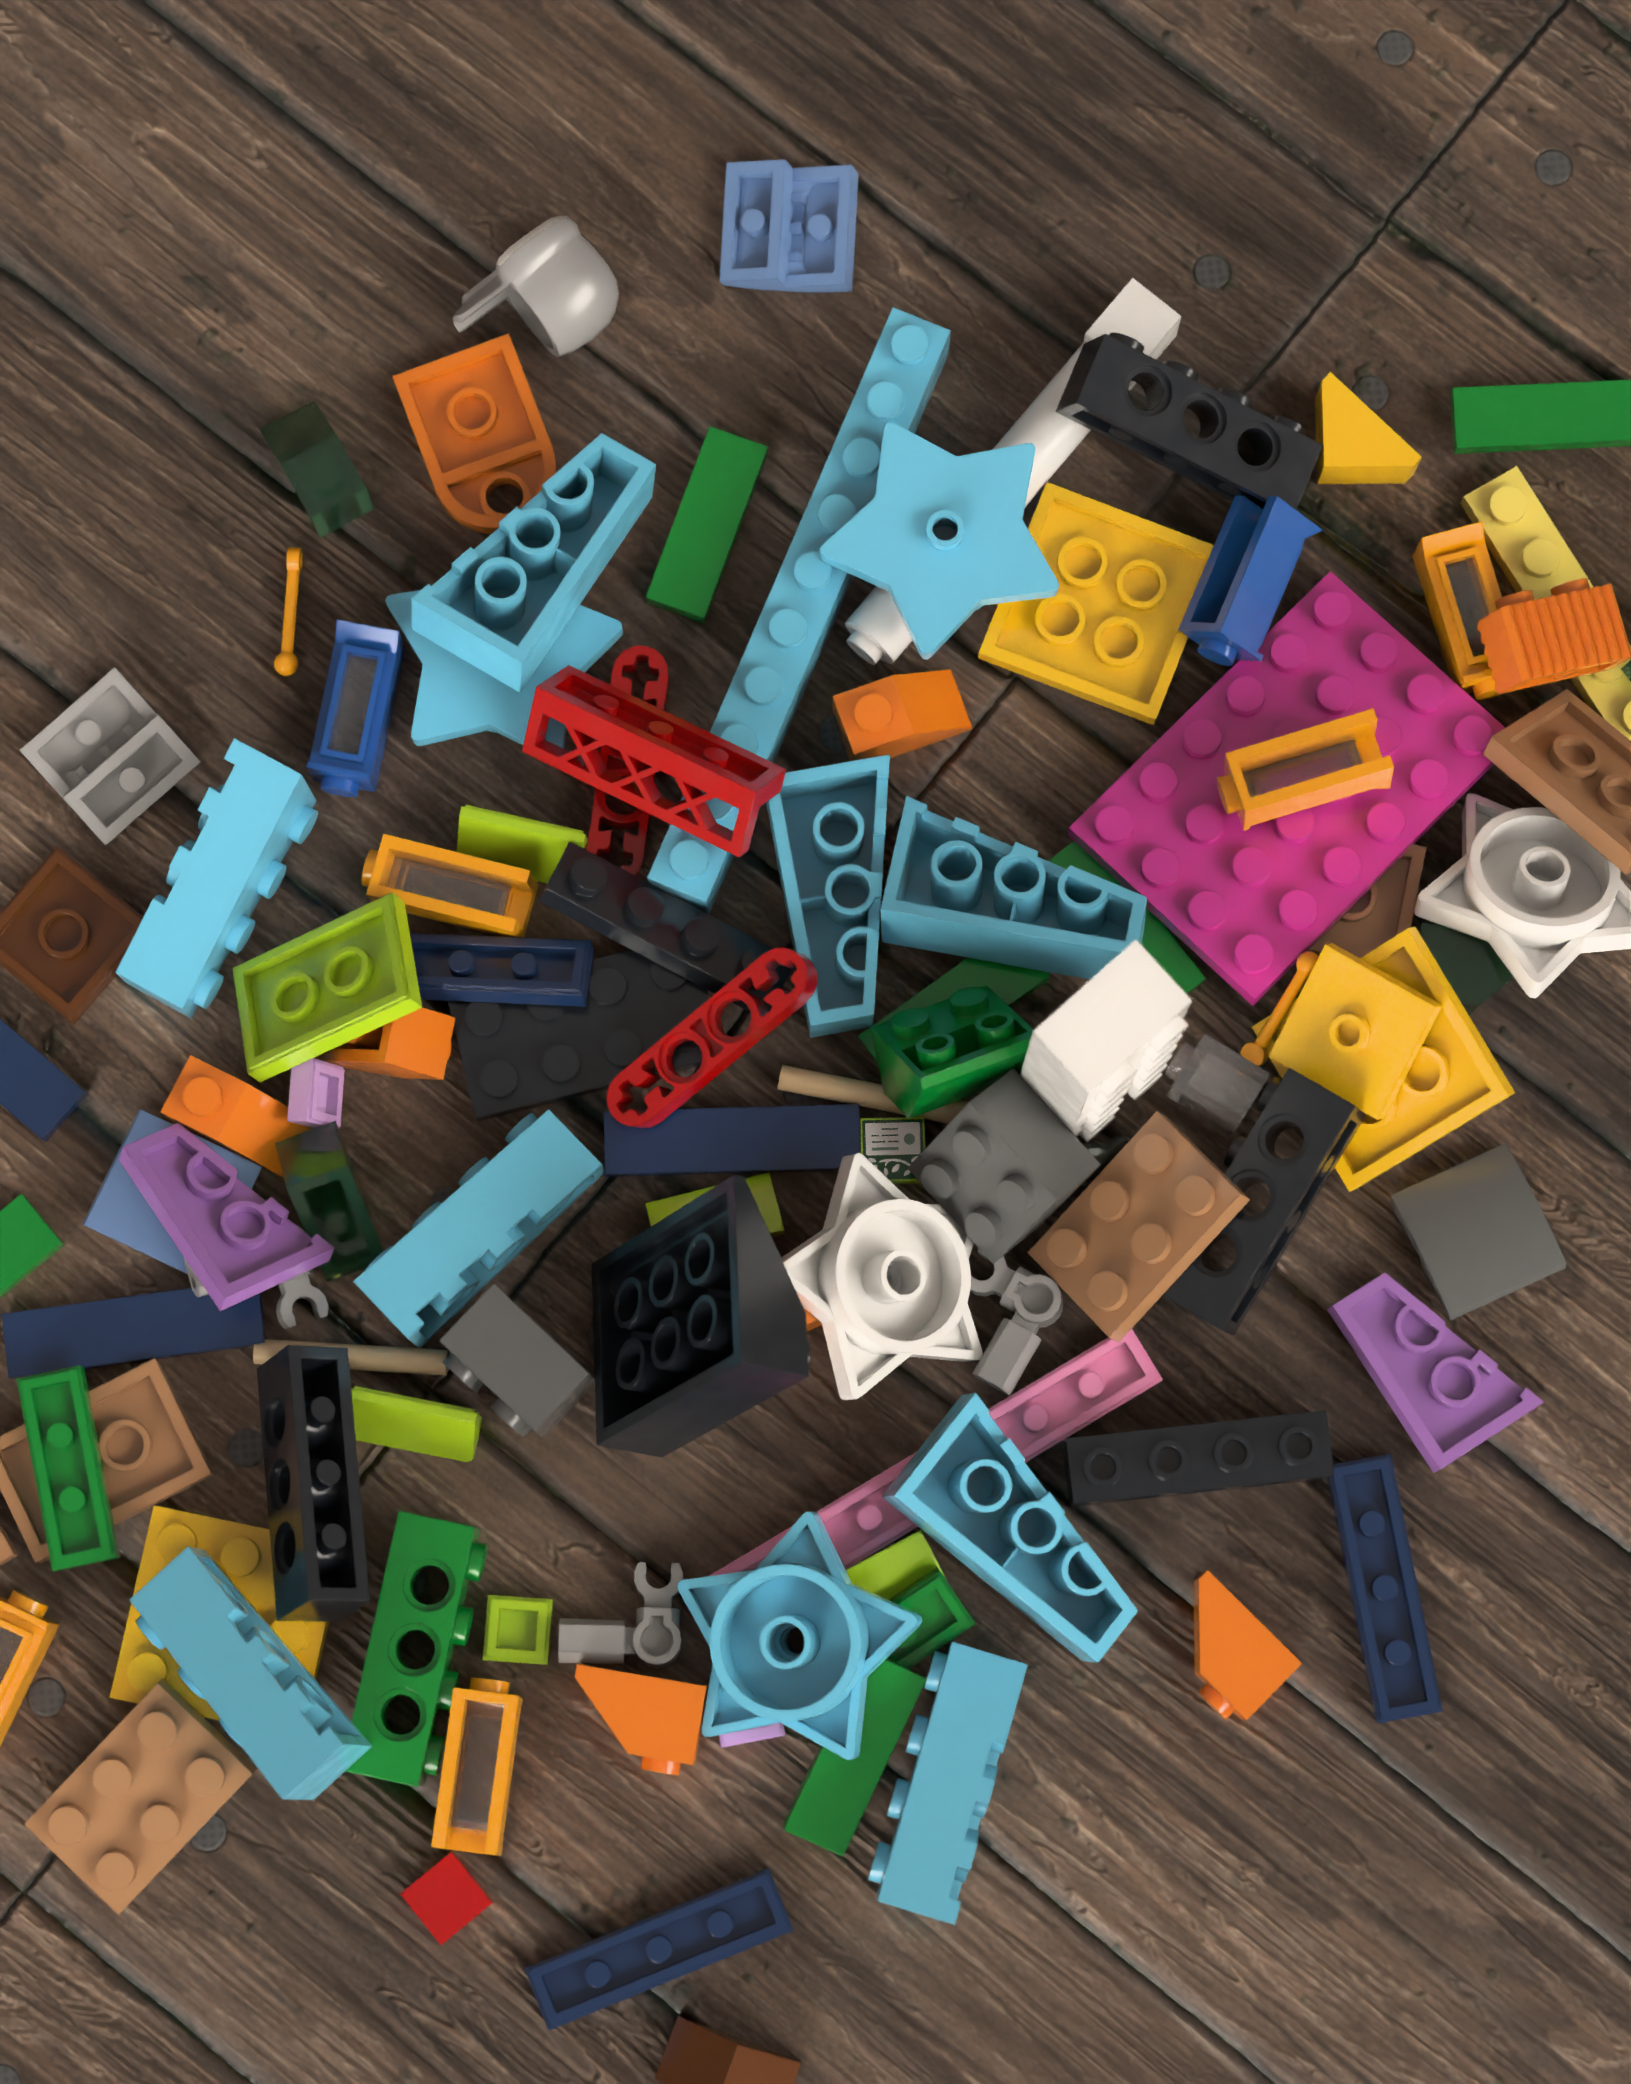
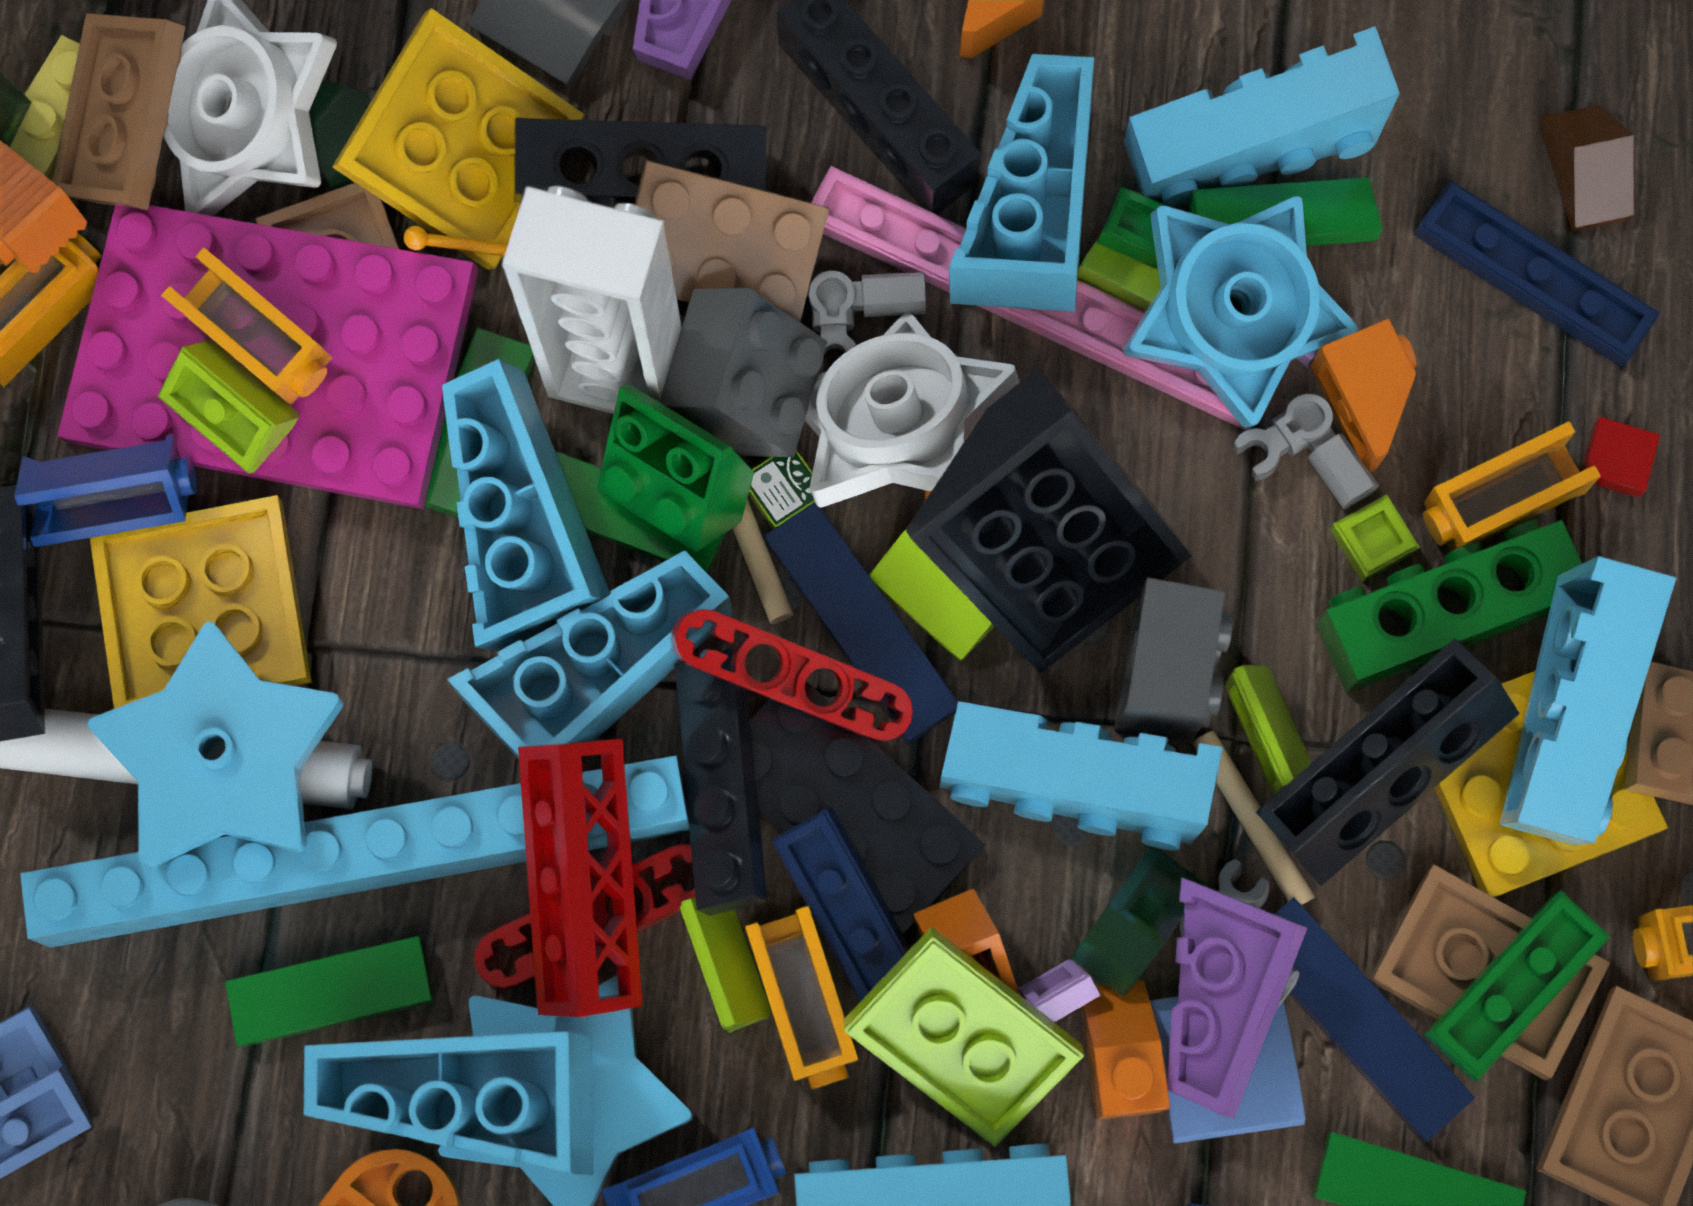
camera: 125 degrees left, 5 degrees down
(900, 714) = (407, 712): orange slope -> none
(1252, 715) = (227, 404): none -> lime slope
(1355, 1030) = (450, 165): yellow plate -> none

